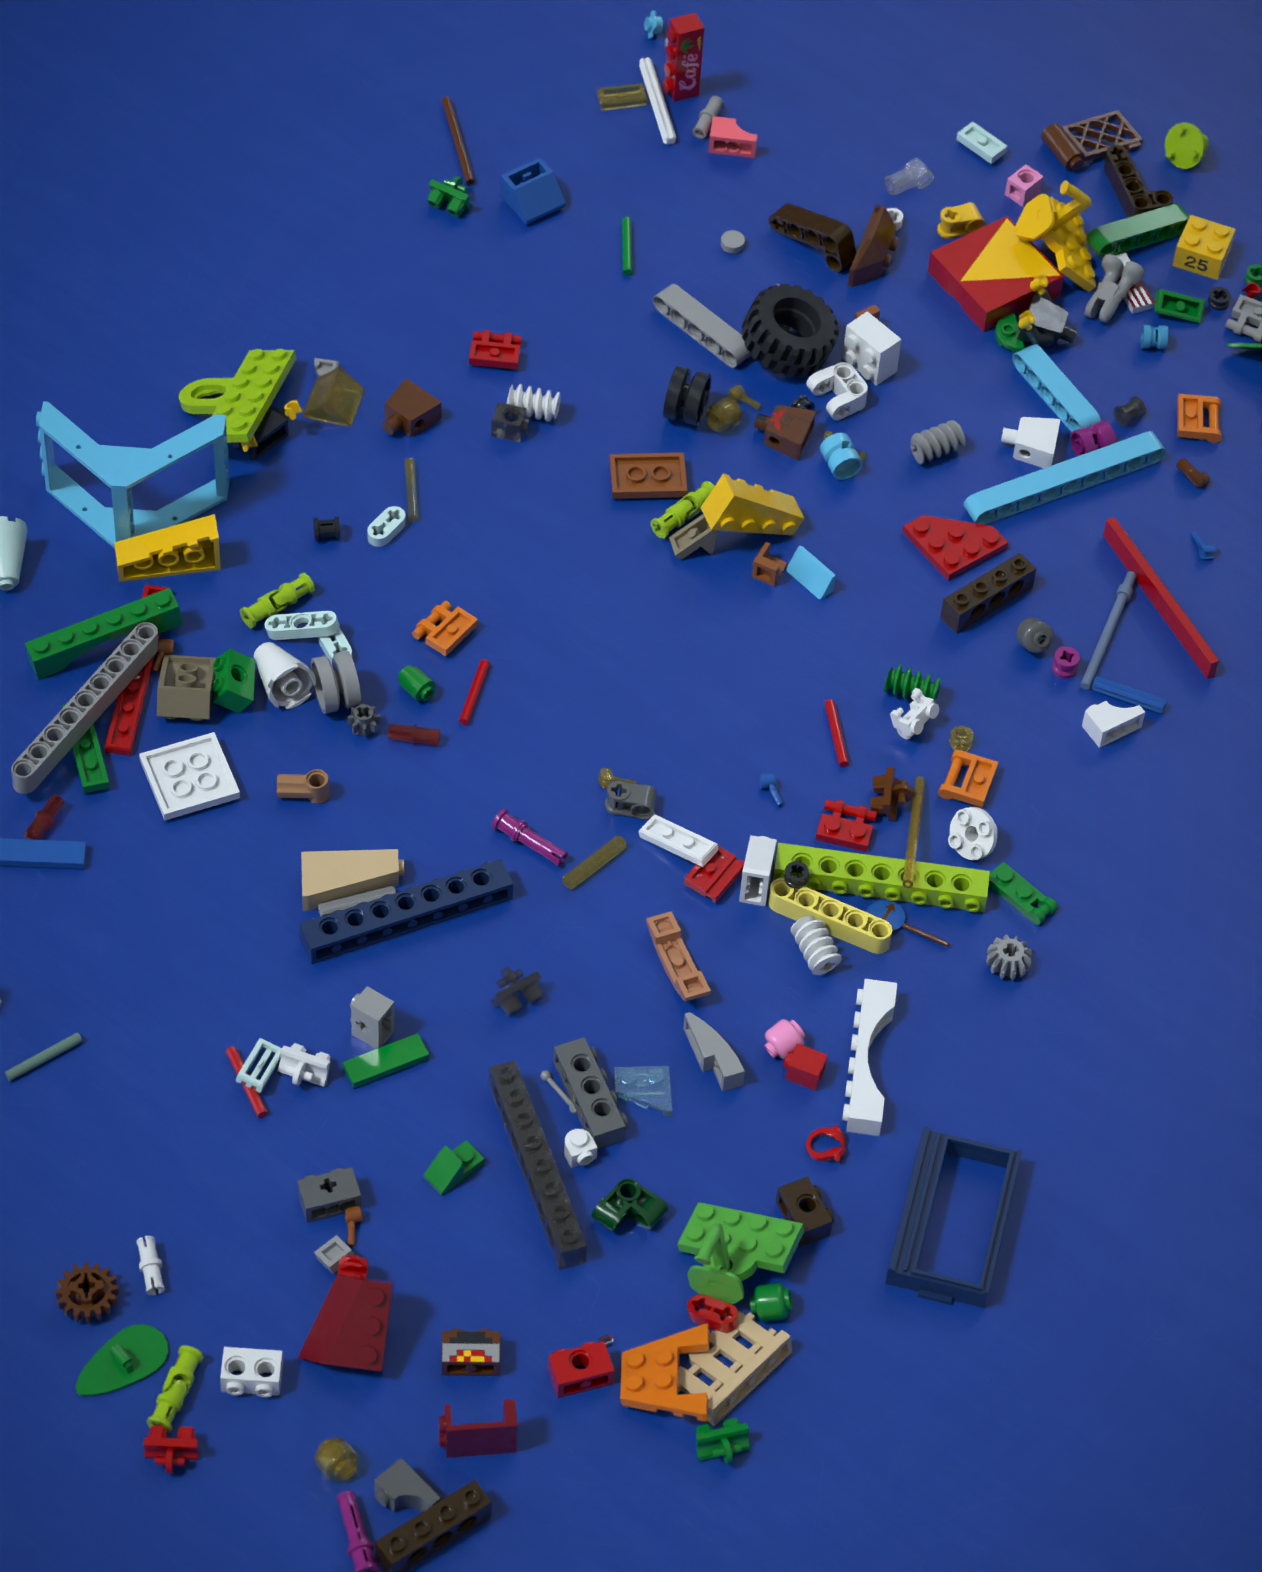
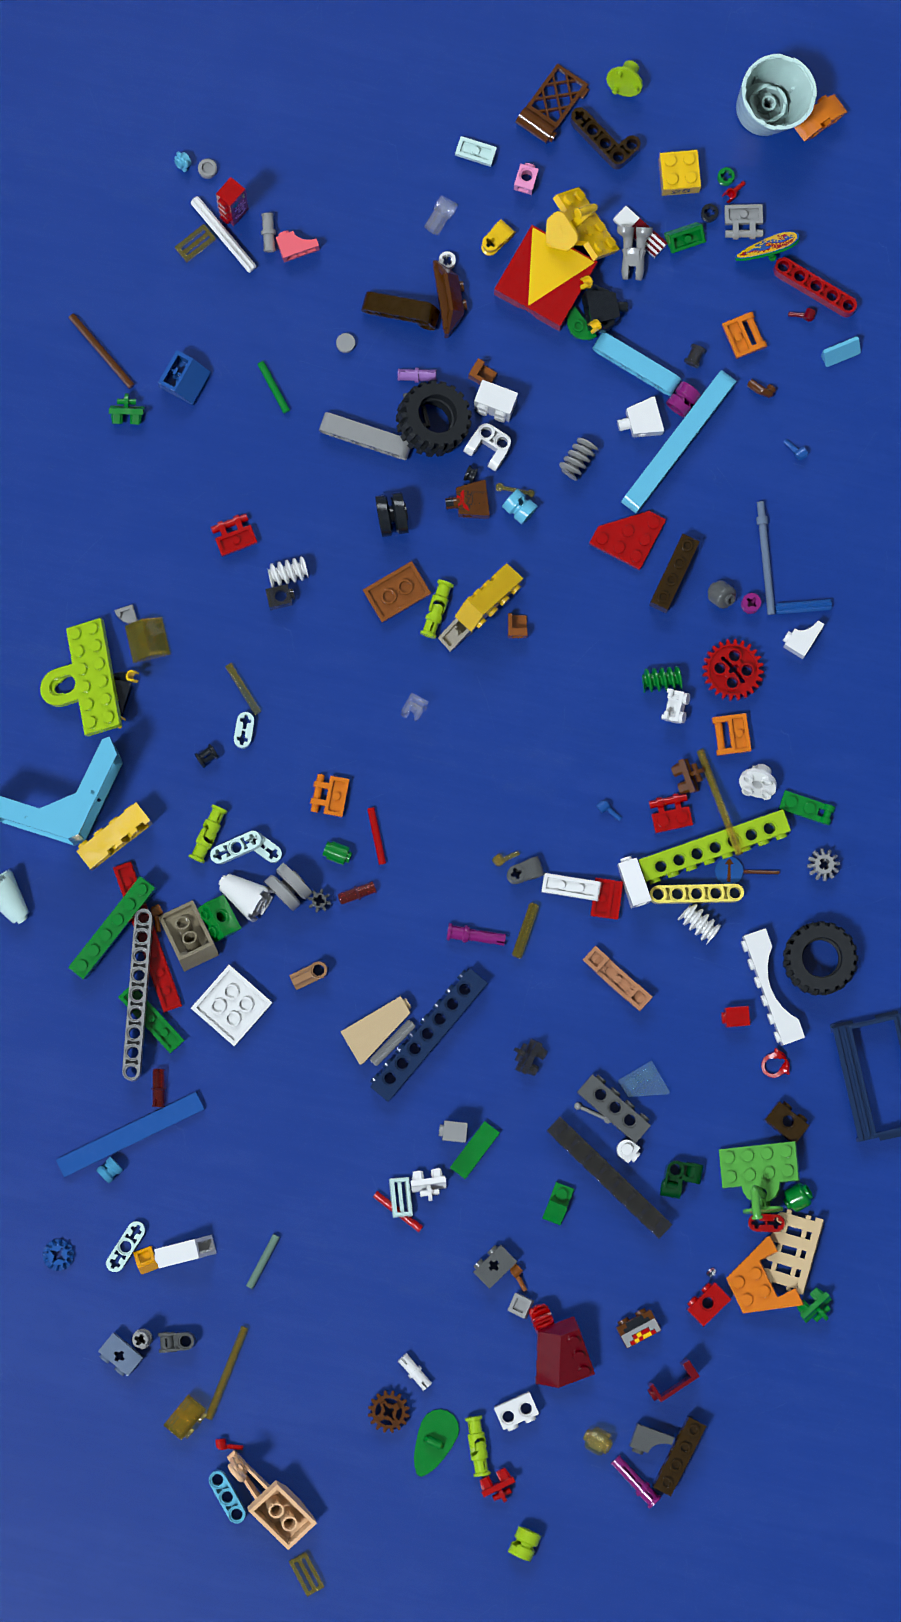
camera: 30 degrees left, 30 degrees up
(164, 1531) = (524, 1543): none -> lime wheel
(410, 409) = (205, 623): reddish brown torso -> none
(599, 578) = (415, 704): none -> clear hinge
(713, 1053) = (672, 1037): light grey slope -> none
(723, 415) = (421, 511): clear yellow head -> none
(738, 393) = (419, 484): clear yellow hand -> none
(783, 1038) = (713, 1003): bright pink head -> none
(795, 882) = (669, 880): black bush -> none
(811, 573) = (548, 618): medium azure slope -> none
(836, 733) = (628, 741): red bar -> none
(949, 1077) = (846, 958): none -> black tyre
(961, 732) = (708, 697): clear yellow bush -> none
(988, 720) = (746, 659): none -> red gear
(1138, 230) = (628, 181): green beam -> none
(1154, 336) = (681, 277): dark azure wheel -> none
(1161, 598) = (788, 513): red tile -> none

